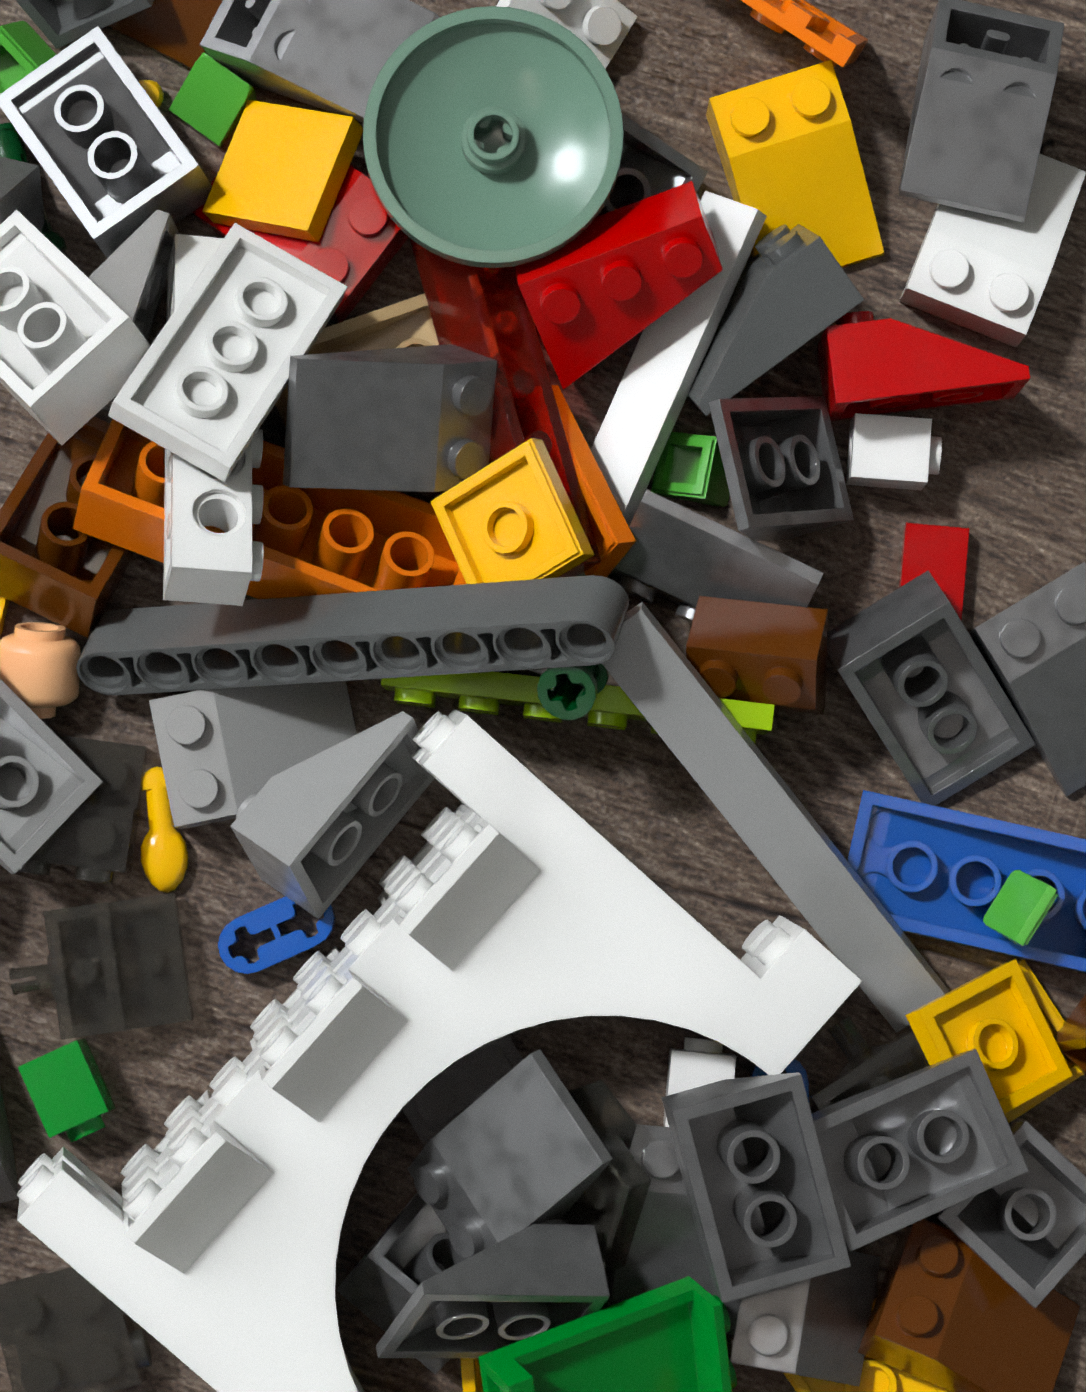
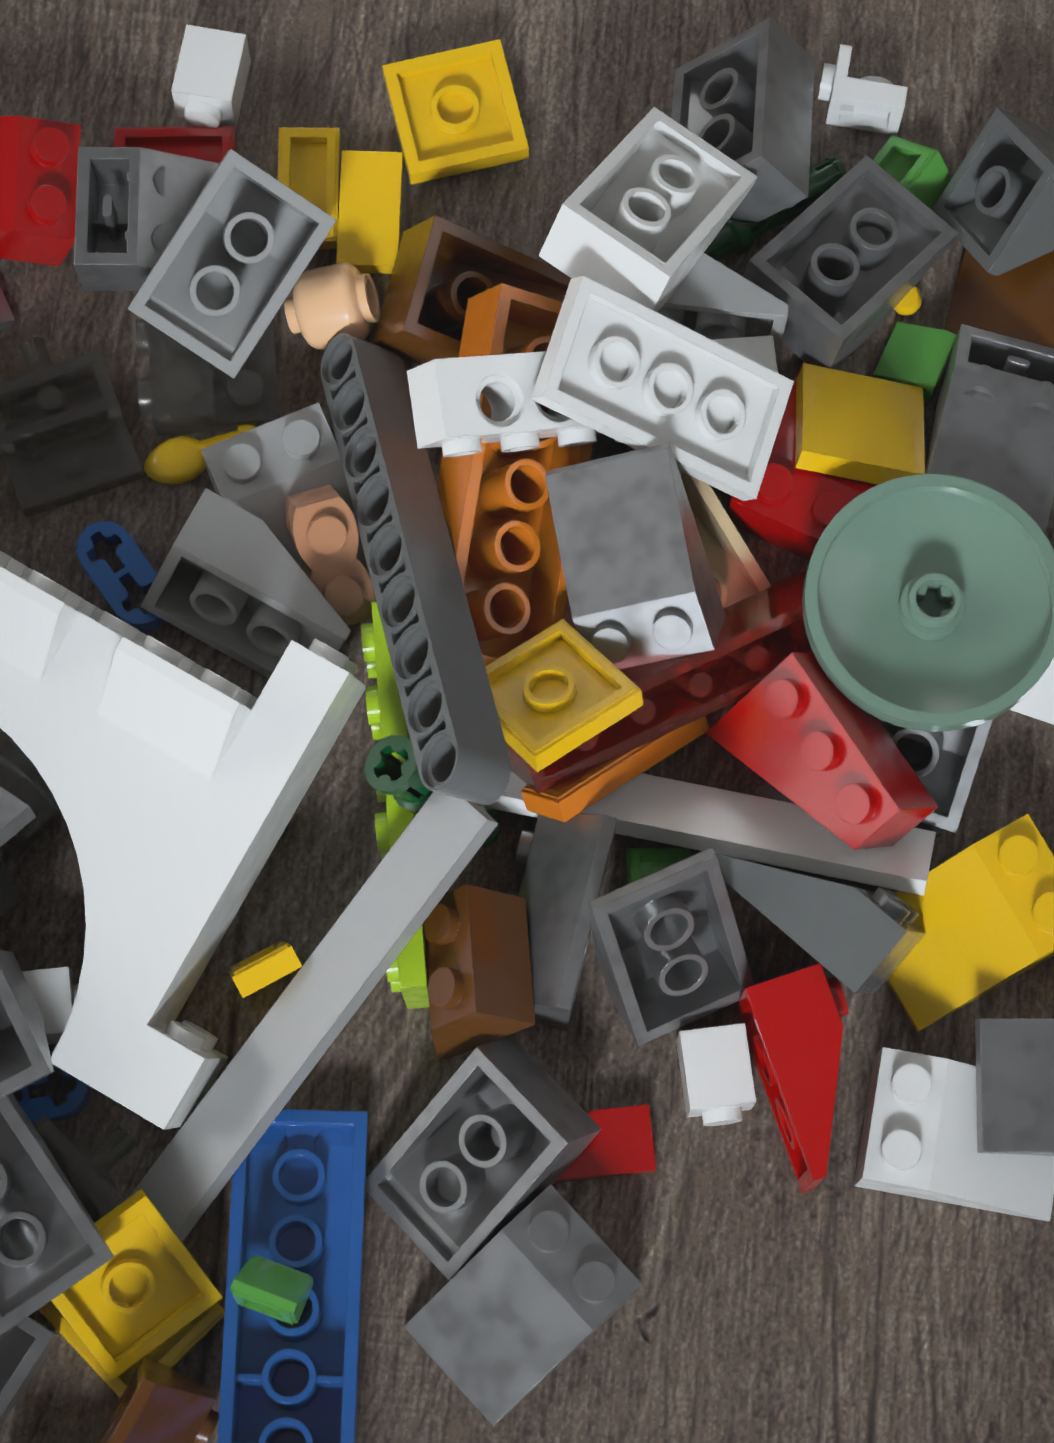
camera: 75 degrees right, 10 degrees down
(307, 717) = (328, 543): none -> nougat brick
(711, 860) = (264, 967): none -> yellow tile

